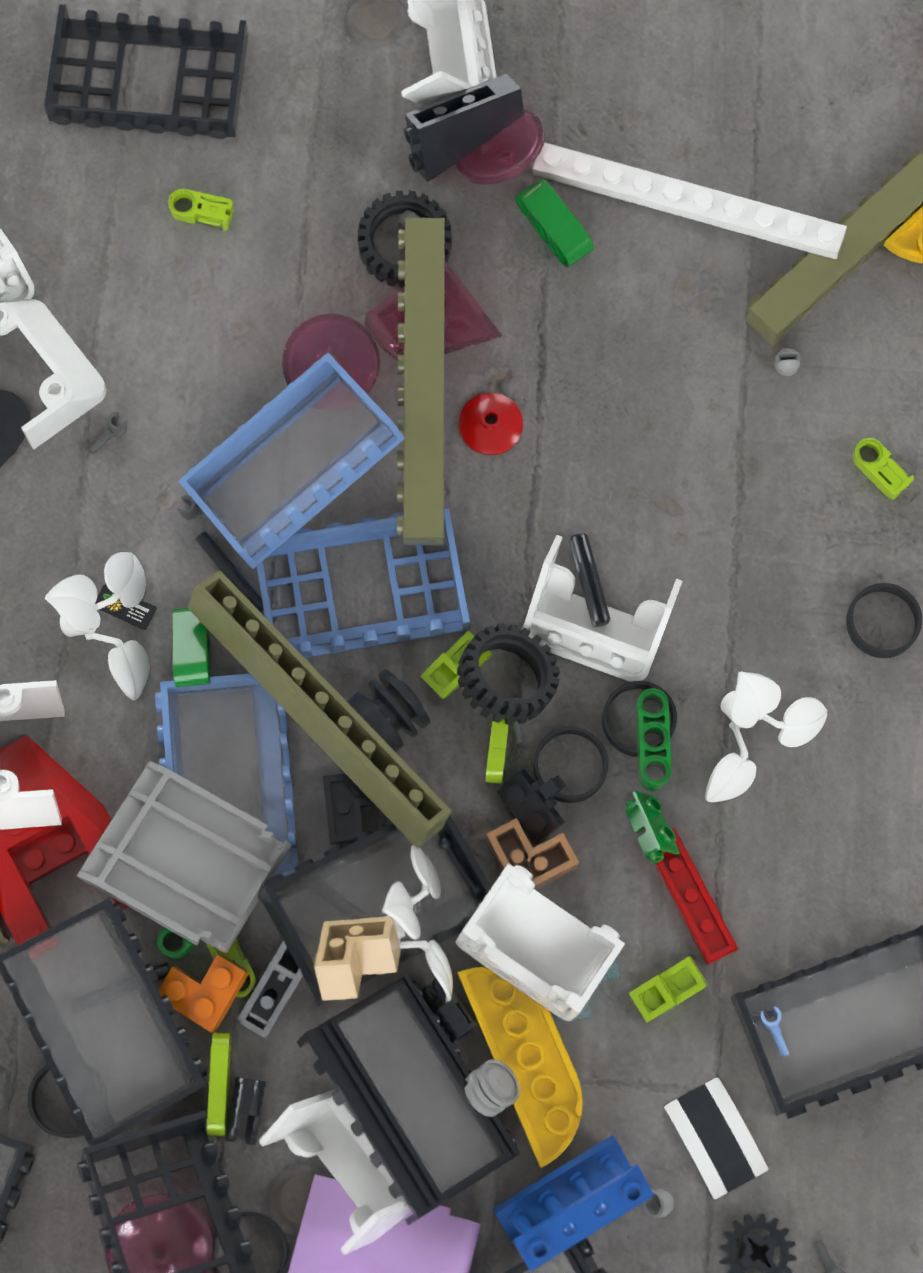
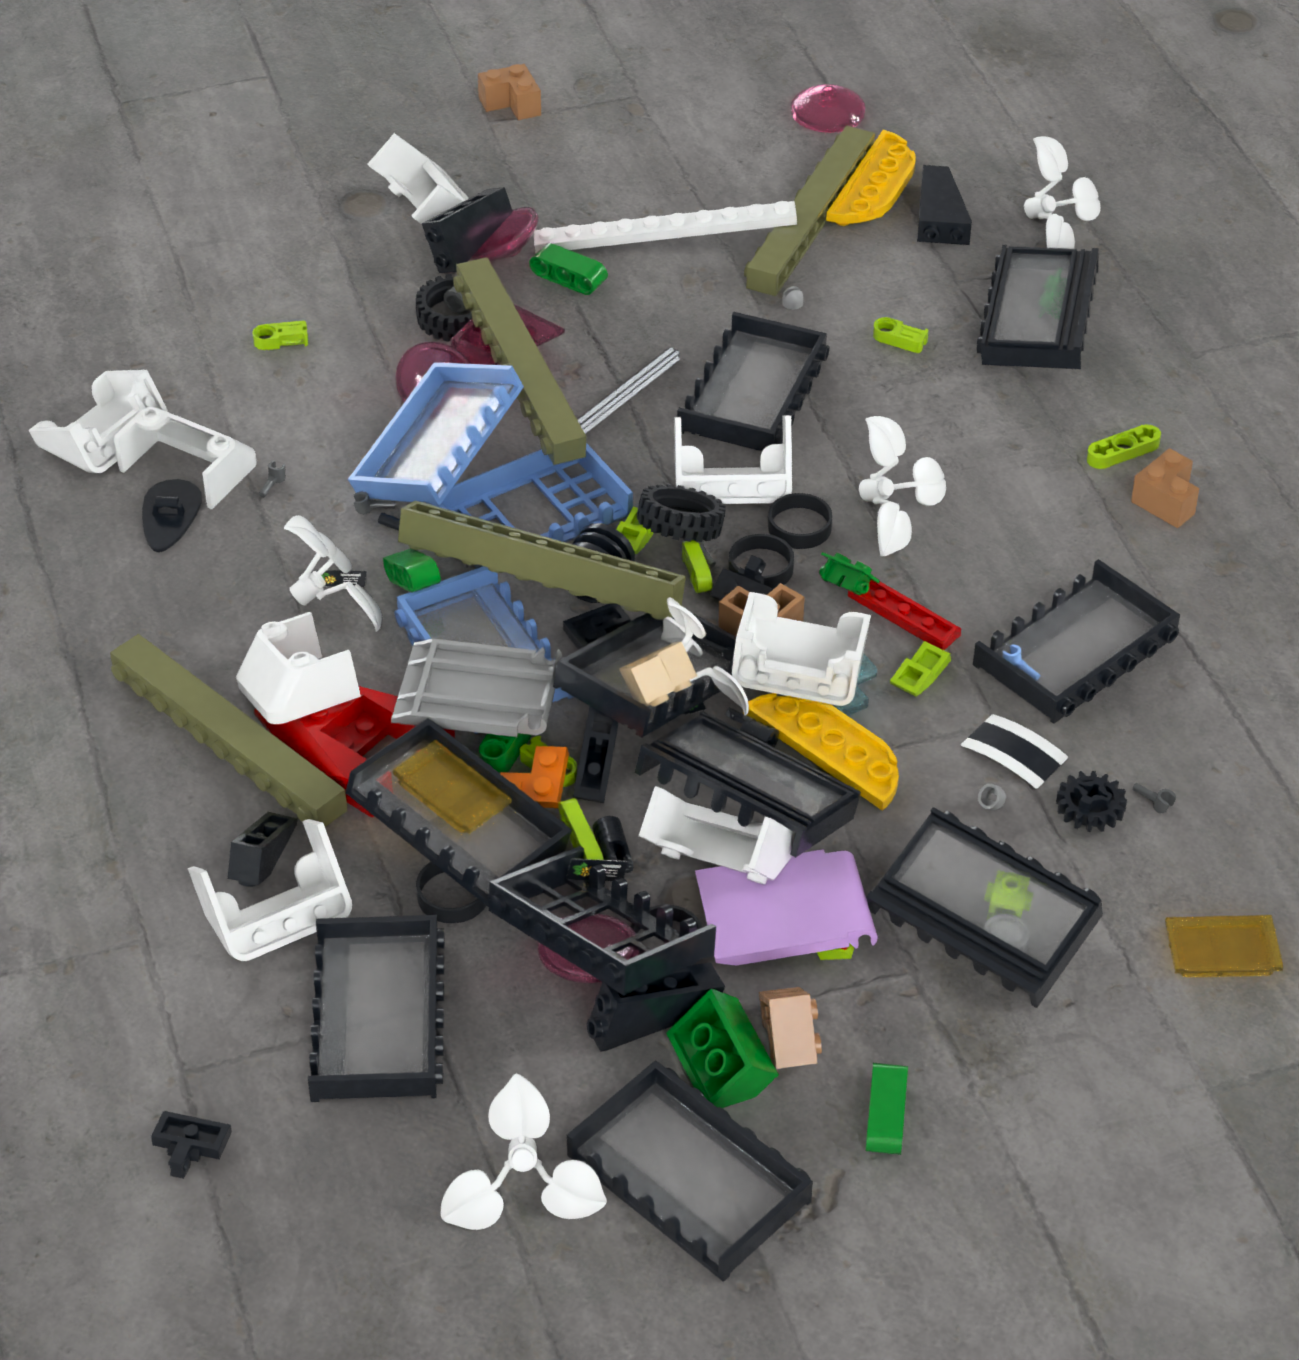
camera: 20 degrees left, 30 degrees down
(104, 989) = (450, 788): none -> clear yellow piece
(151, 35) = (205, 296): black window -> none
(217, 1140) = (580, 869): none -> black sticker
(490, 438) = (583, 392): red dish -> none
(492, 1088) = (813, 757): light grey wheel -> none
(533, 445) = (628, 389): none -> axle
(572, 1202) = (922, 801): blue fence -> none
(589, 580) = (712, 452): black axle -> none
(653, 723) = (819, 516): green beam -> none
(682, 488) = (754, 381): none -> window
(898, 591) = (950, 432): black tyre -> none

